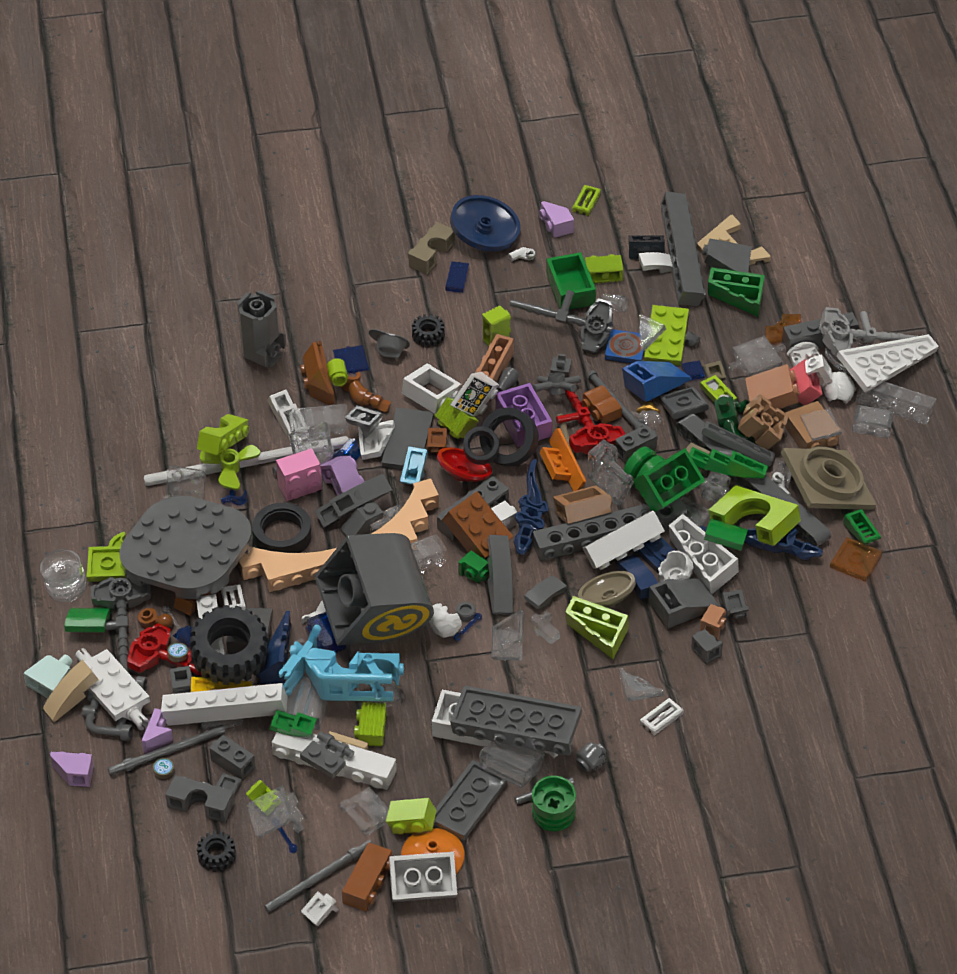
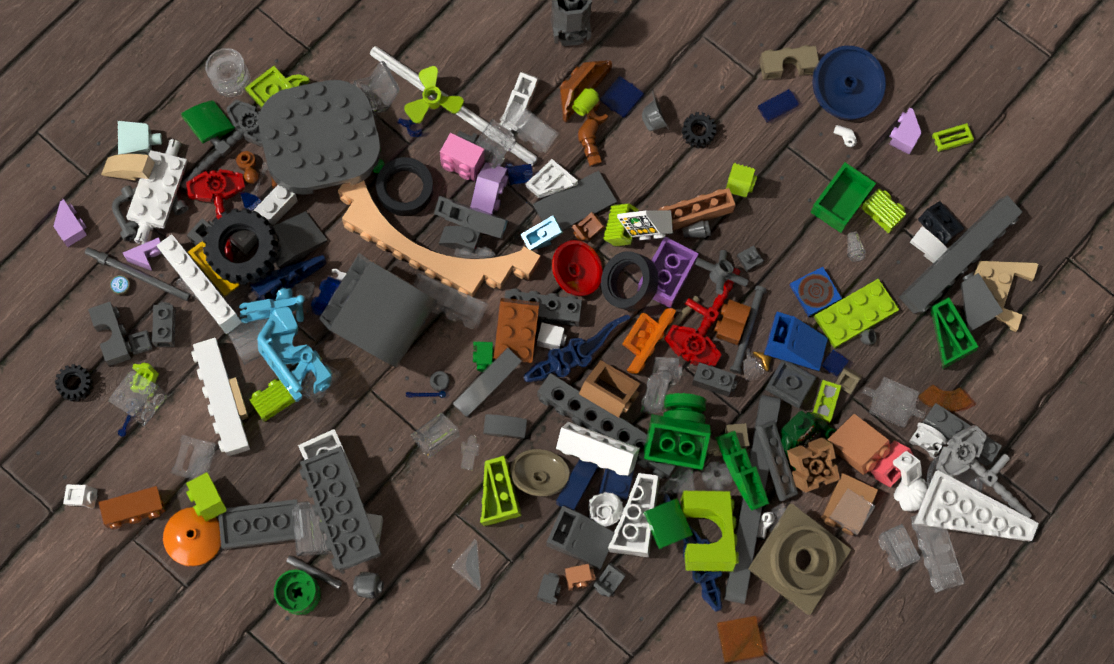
camera: 45 degrees right, 25 degrees up
(177, 652) = (221, 207): tile -> none
(230, 431) = (431, 73): lime arch -> none
(240, 595) = (300, 216): white tile -> none
(288, 724) = (217, 347): green slope -> none
(322, 758) = (204, 394): dark grey plate -> none
(352, 855) = (146, 480): dark grey bar -> none
(365, 419) = (552, 159): dark grey slope -> none
(414, 389) = (636, 164): white window -> none
(423, 876) = (154, 550): white brick -> none
(443, 622) = (406, 375): white hair -> none
(481, 431) = (614, 268): black tyre -> none
(593, 328) = (813, 251): dark grey bar -> none
(649, 331) = (842, 299): clear tile -> none
(663, 719) = (453, 613): white tile -> none
(859, 516) = (780, 607): green slope -> none

